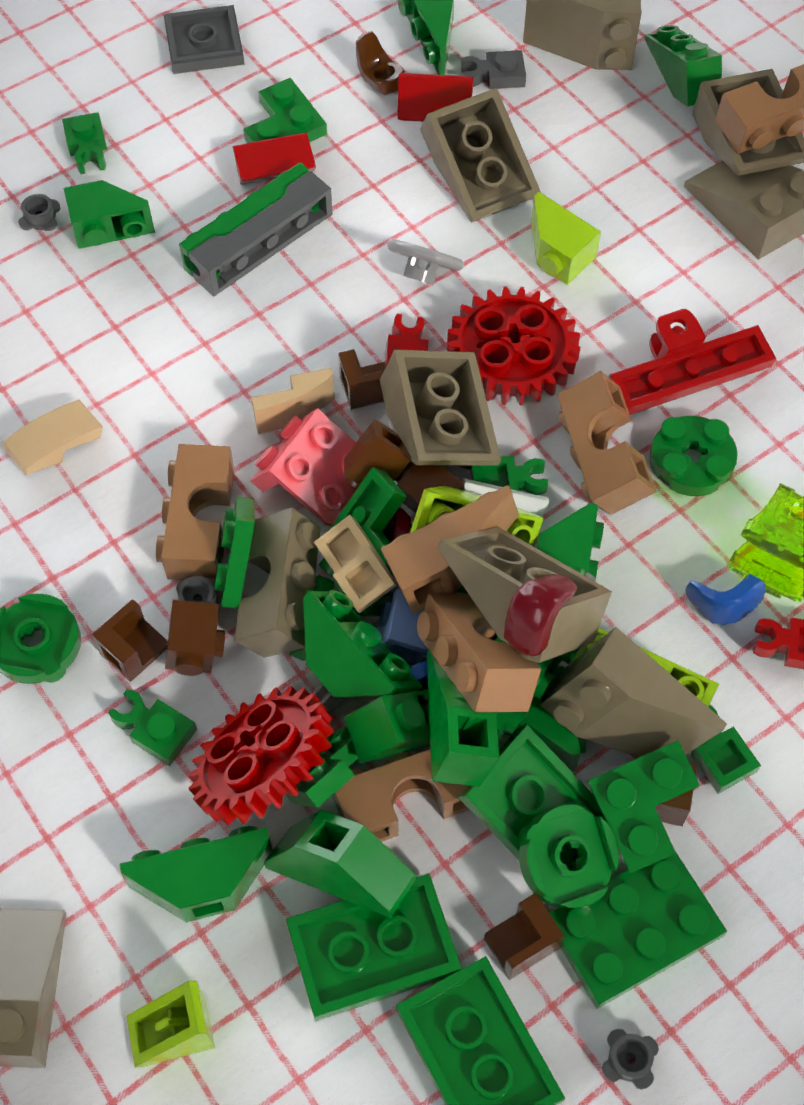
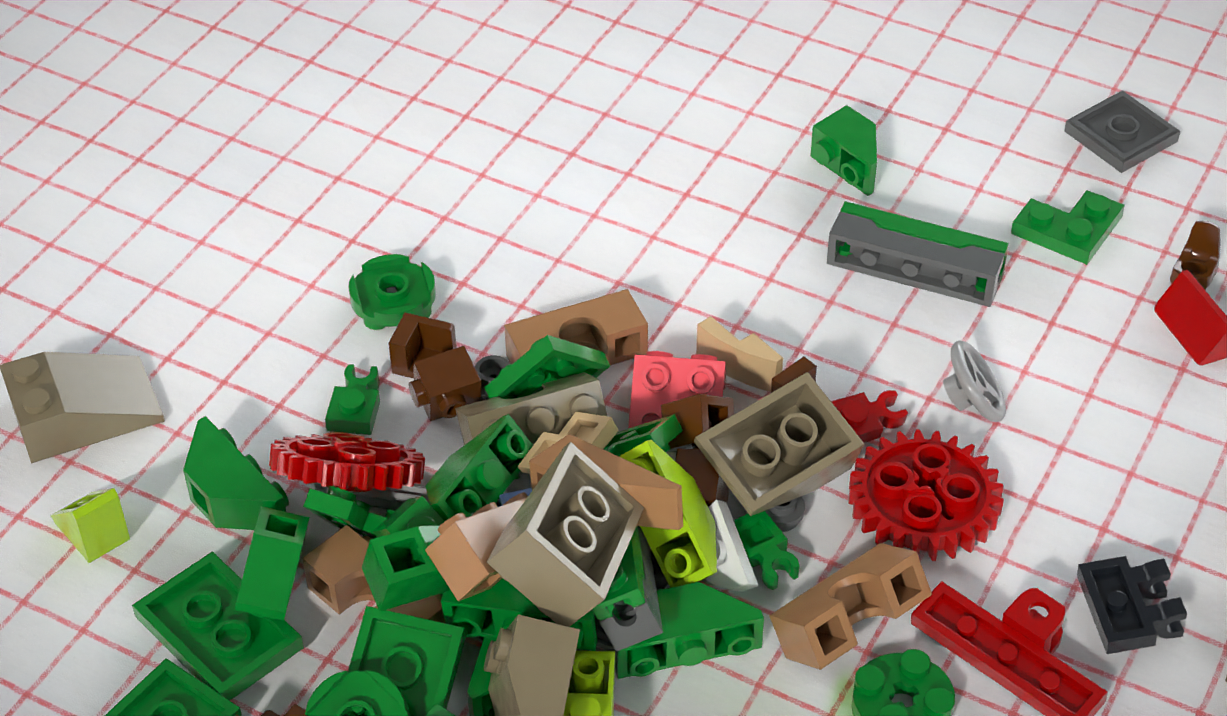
camera: 65 degrees right, 15 degrees down
(39, 213) = (819, 107): dark grey plate -> none
(47, 437) = (586, 213): tan slope -> none
(85, 139) = (932, 104): green plate -> none
(271, 157) = (1002, 222): red slope -> none
(479, 155) = (1147, 378): dark tan slope -> none
(534, 612) = (528, 513): dark red hair -> none
(561, 239) = (1088, 484): lime slope -> none
(677, 281) = (1117, 603): none -> black plate

